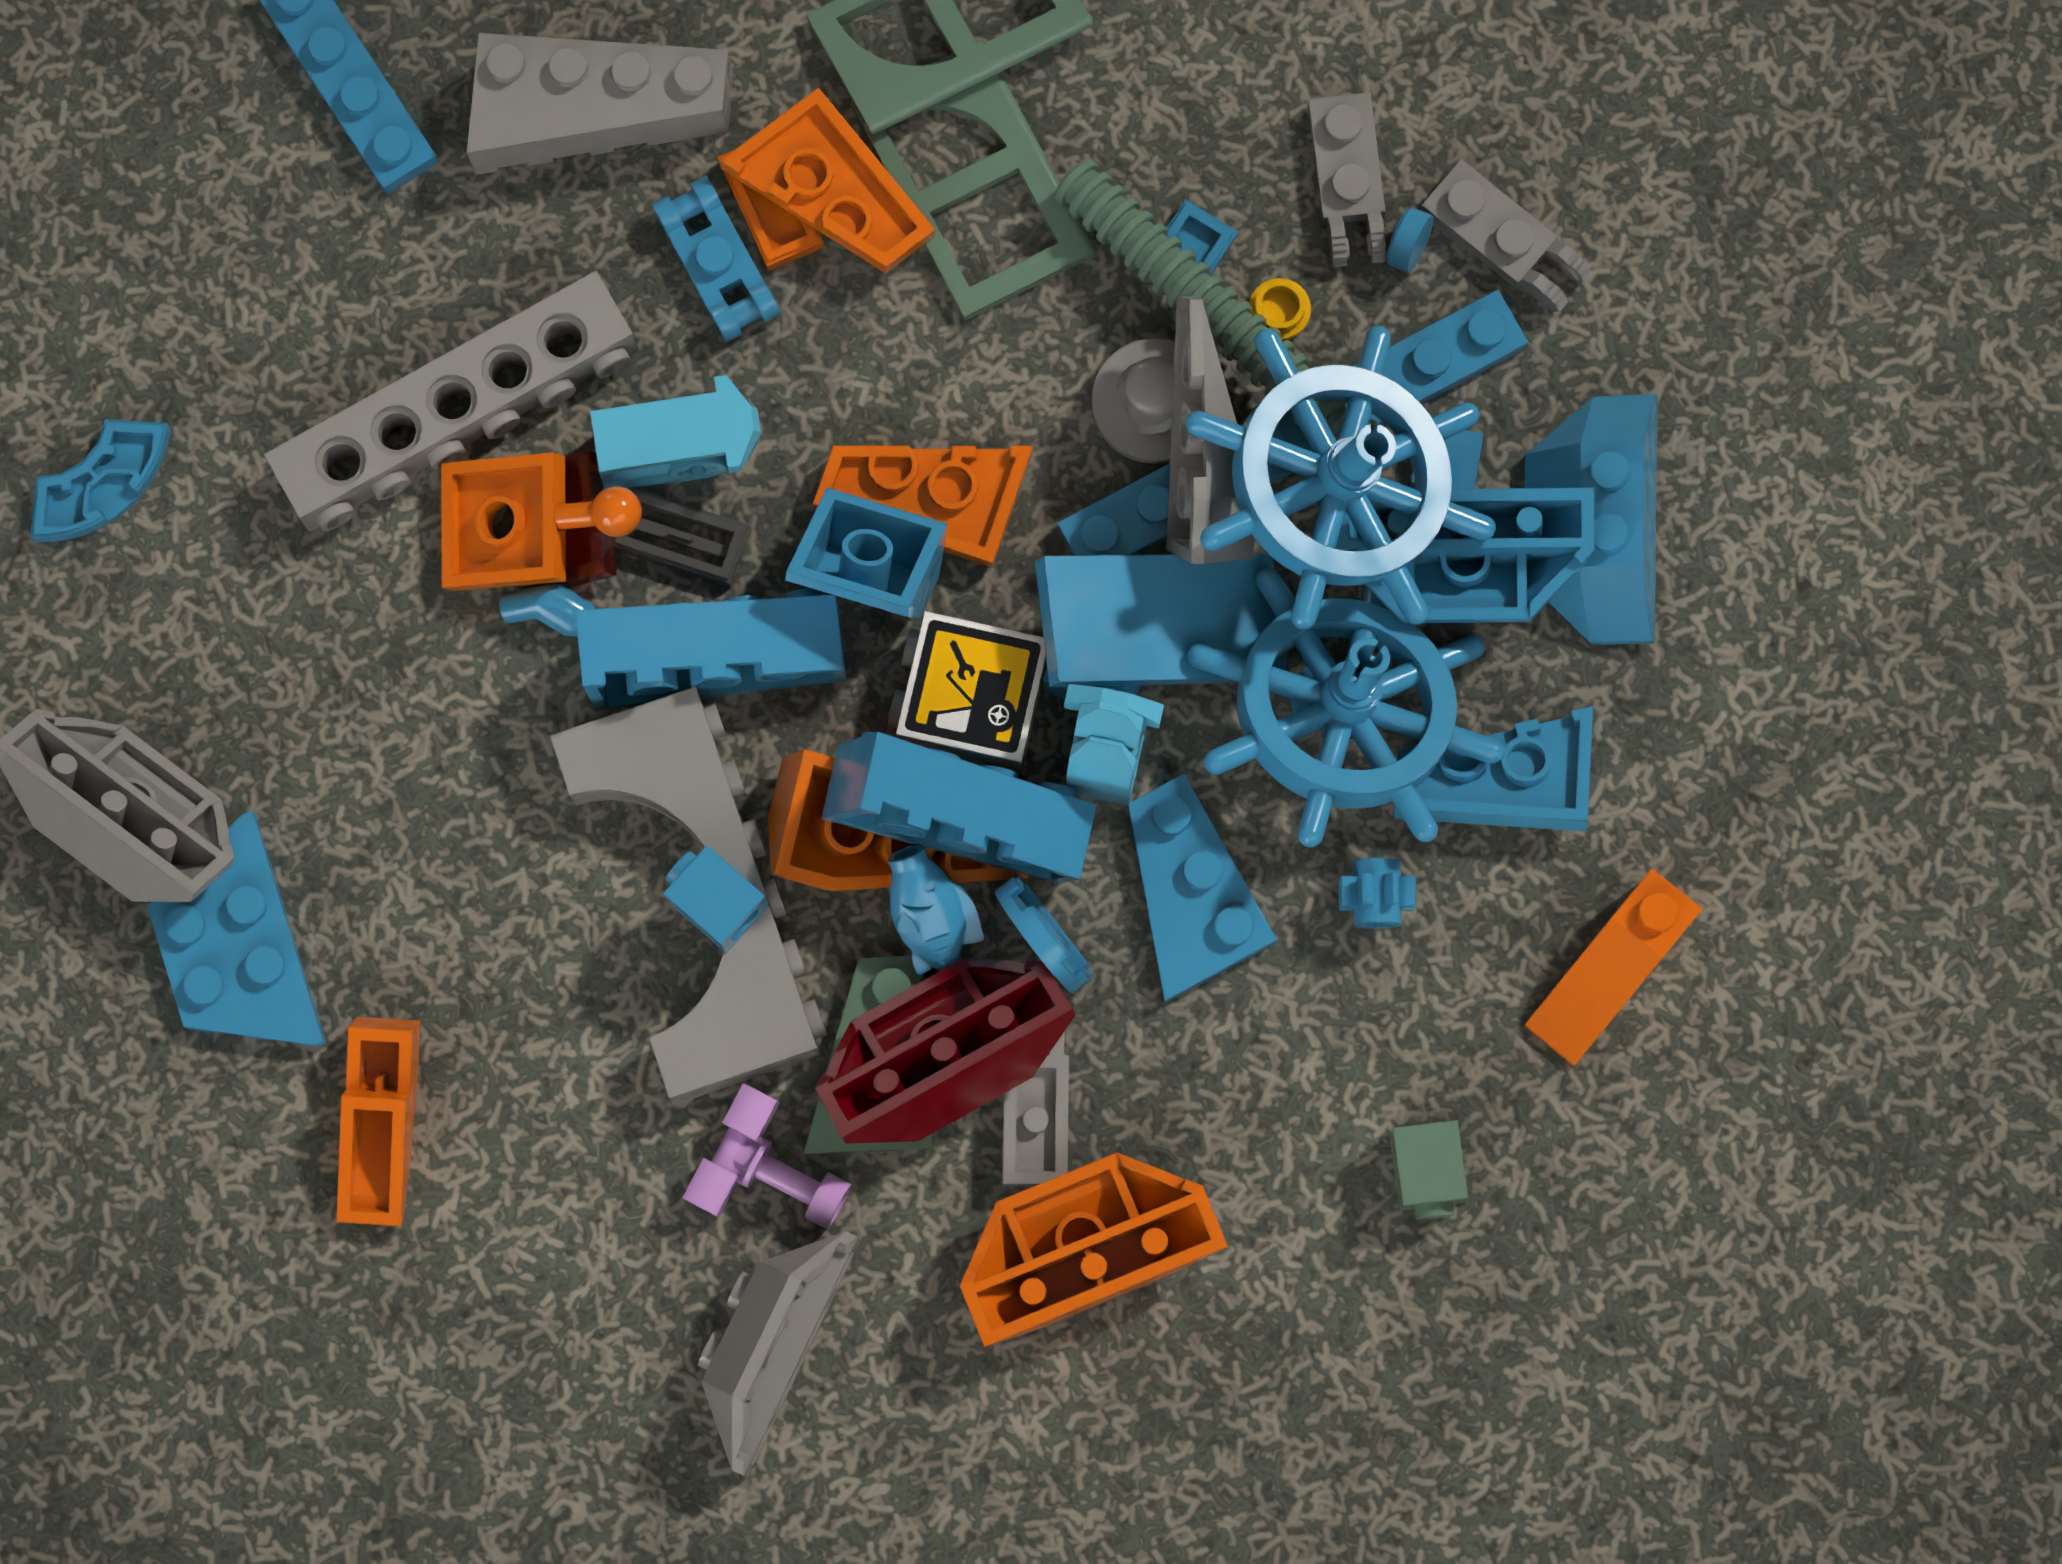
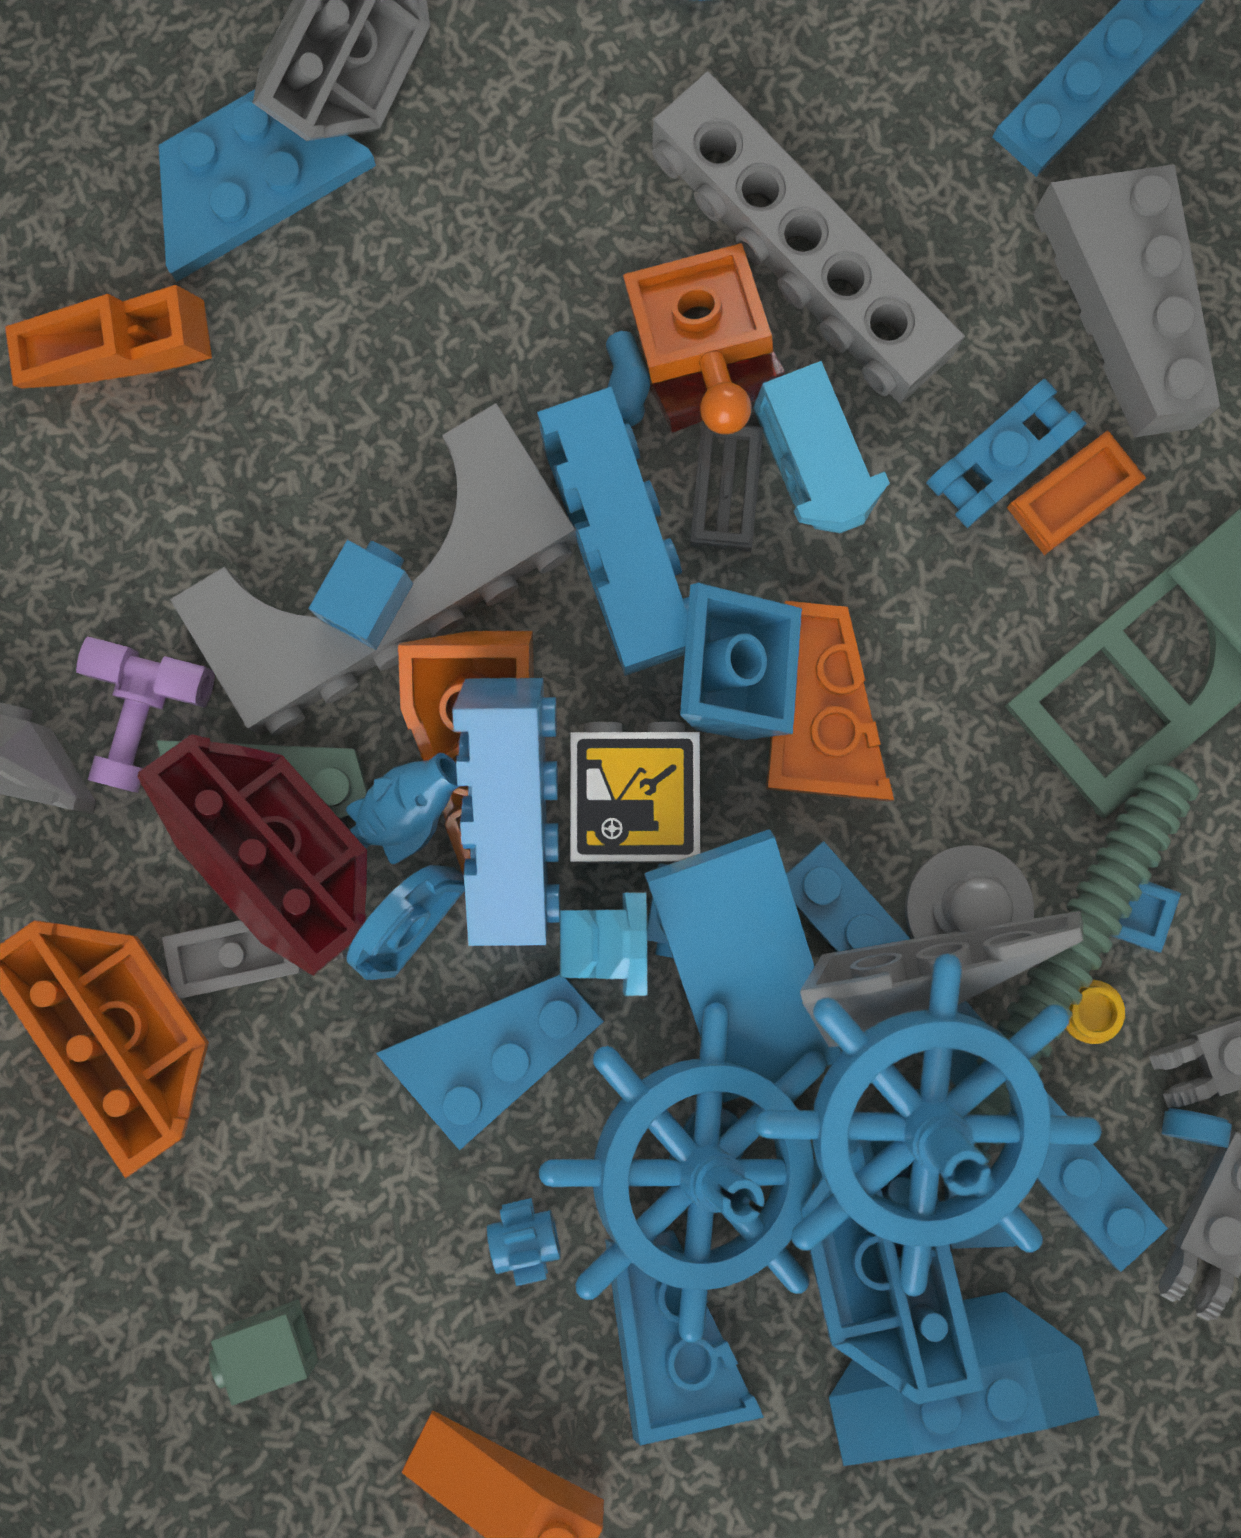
camera: 75 degrees right, 5 degrees up
(832, 182) = (1111, 542): orange wing -> none

